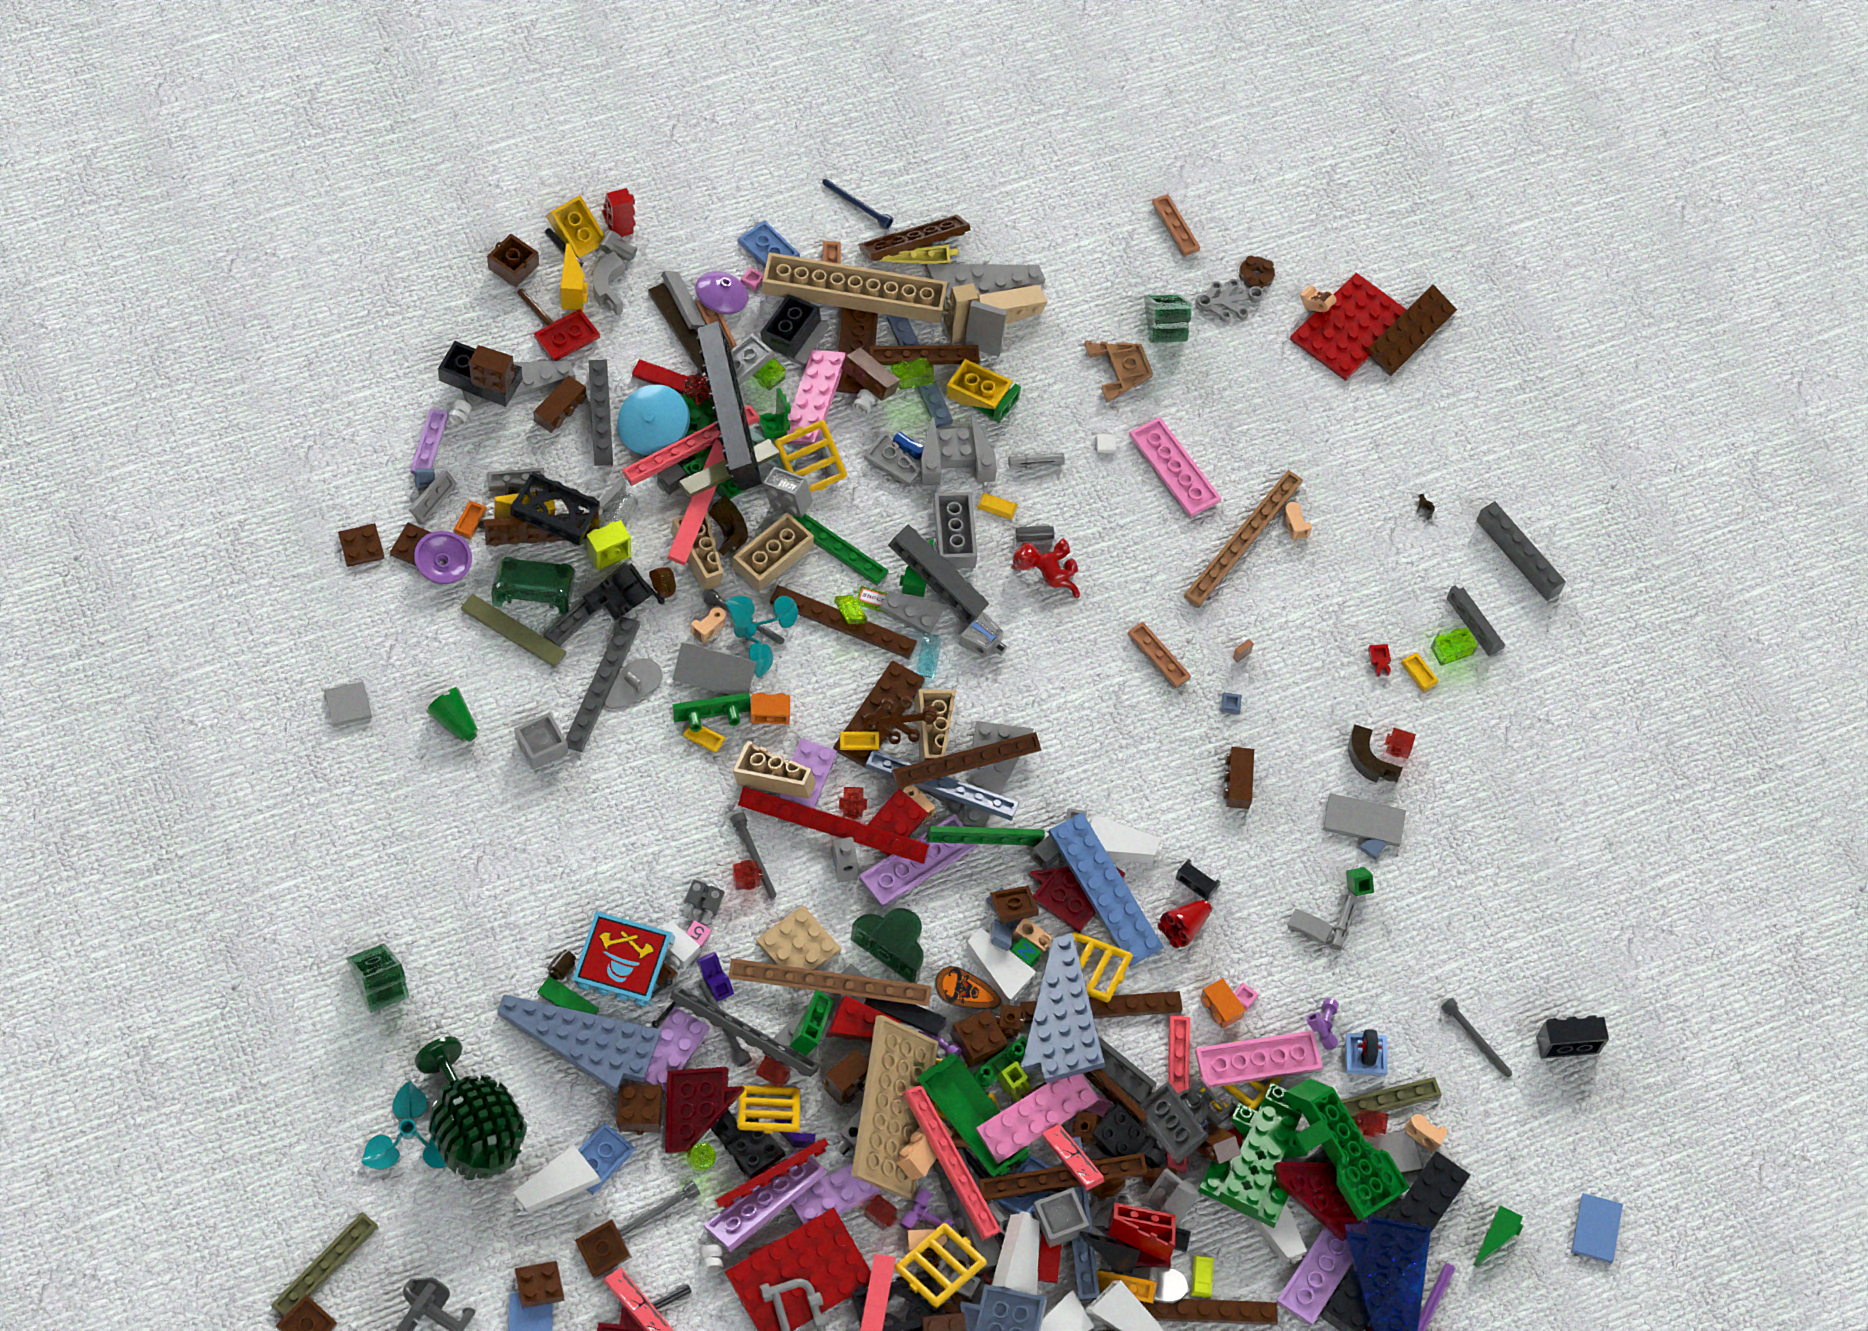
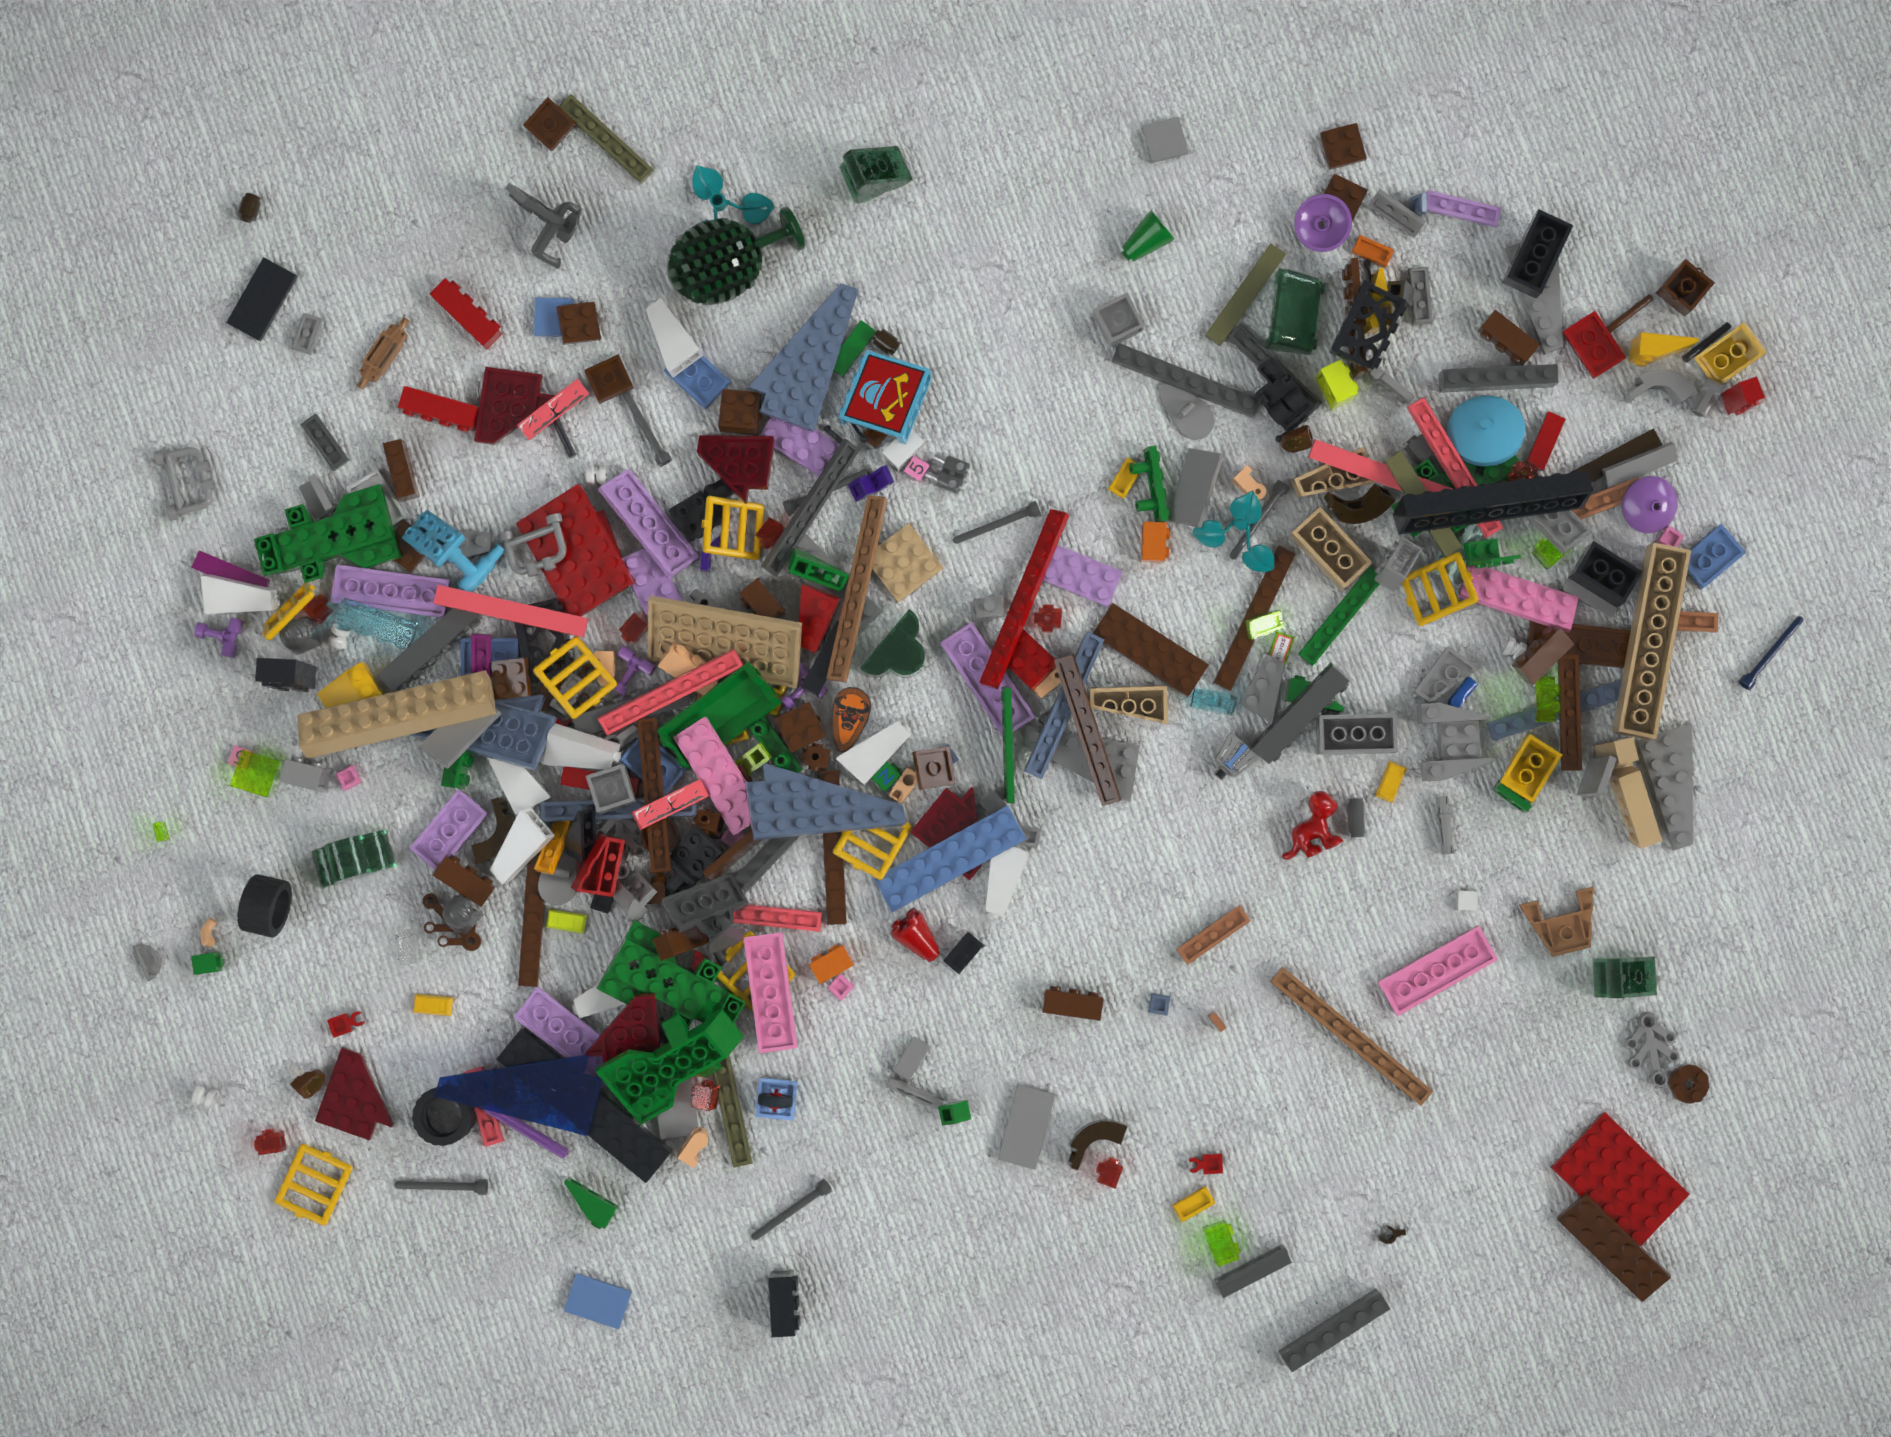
camera: 100 degrees right, 25 degrees up
(459, 413) = (1499, 240): white wheel -> none
(492, 369) = (1529, 259): reddish brown brick -> none
(697, 1162) = (690, 466): clear neon green head -> none
(746, 875) = (969, 508): clear red brick -> none
(772, 773) = (1079, 537): tan wedge -> none
(779, 1169) = (672, 532): red plate -> none
(859, 740) = (1114, 626): yellow tile -> none
(898, 720) = (1133, 665): reddish brown plant -> none
(913, 237) = (1723, 710): reddish brown plate -> none
(925, 255) = (1703, 724): light yellow piece -> none
(1001, 935) = (901, 753): sand blue tile -> none
(1176, 225) = (1749, 999): nougat plate -> none
(1295, 522) = (1369, 1092): light nougat leg -> none
(1317, 300) = (1649, 1145): light nougat leg -> none
(1323, 1024) = (801, 1058): medium lavender bar -> none
(1373, 847) = (995, 1132): sand blue tile -> none

